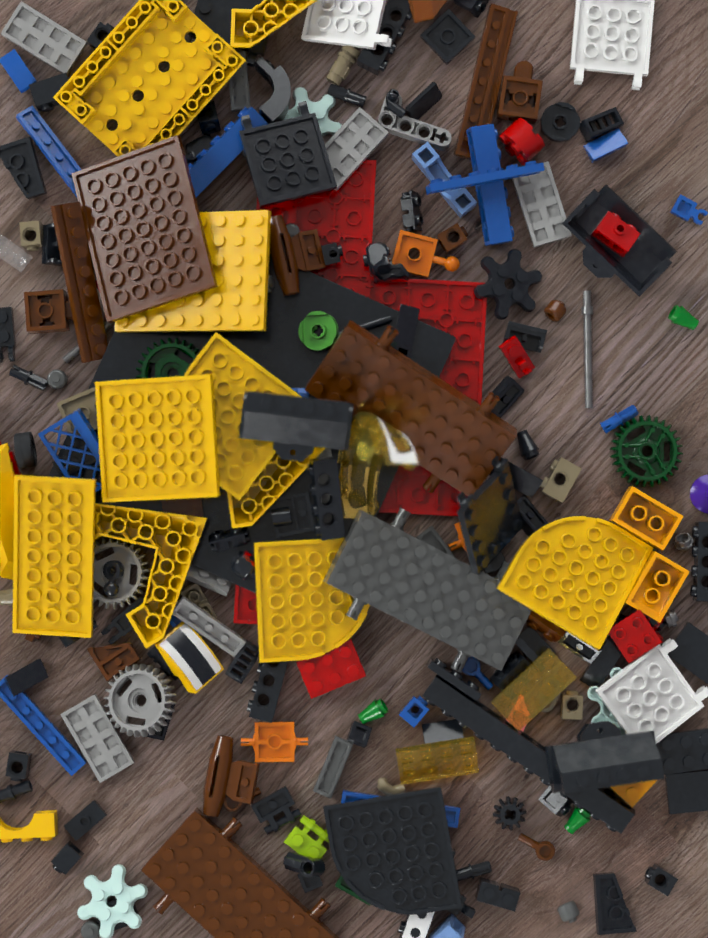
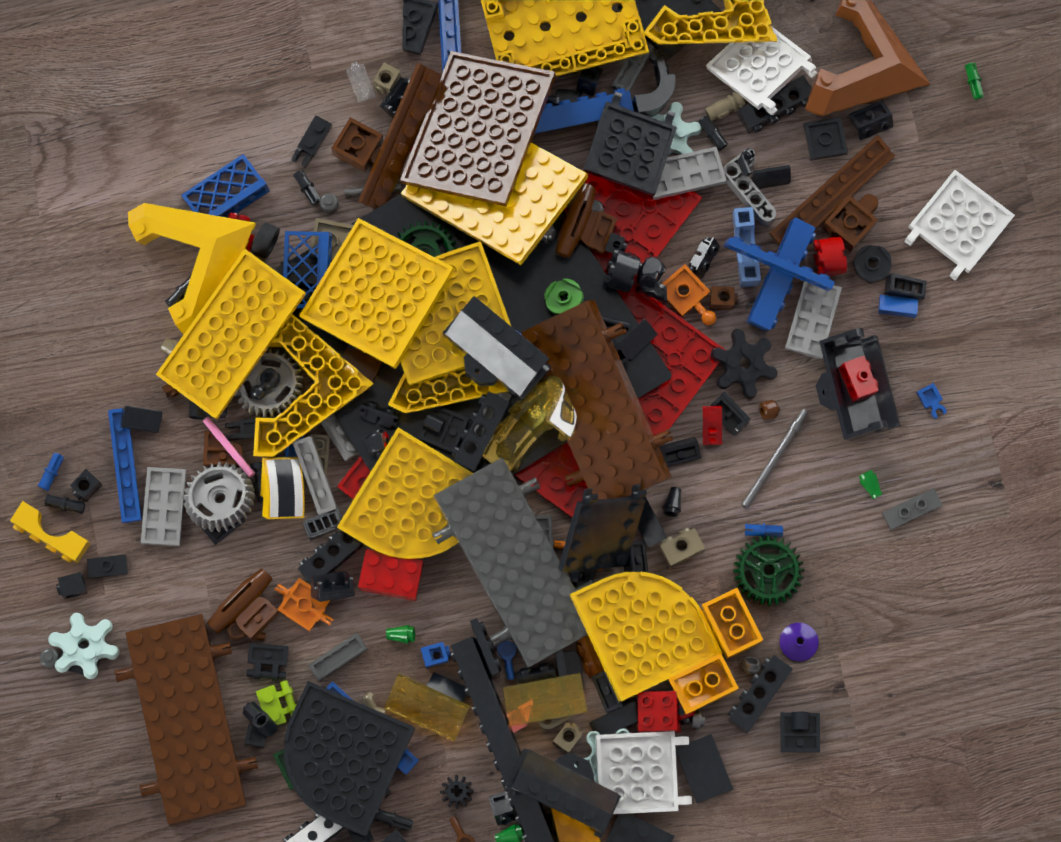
camera: 30 degrees right, 10 degrees down
(118, 651) = (228, 446): none -> bright pink bar
(289, 713) = (332, 586): none -> black hinge
(353, 274) = (621, 270): none -> black brick
(359, 734) = (377, 644): black plate -> none

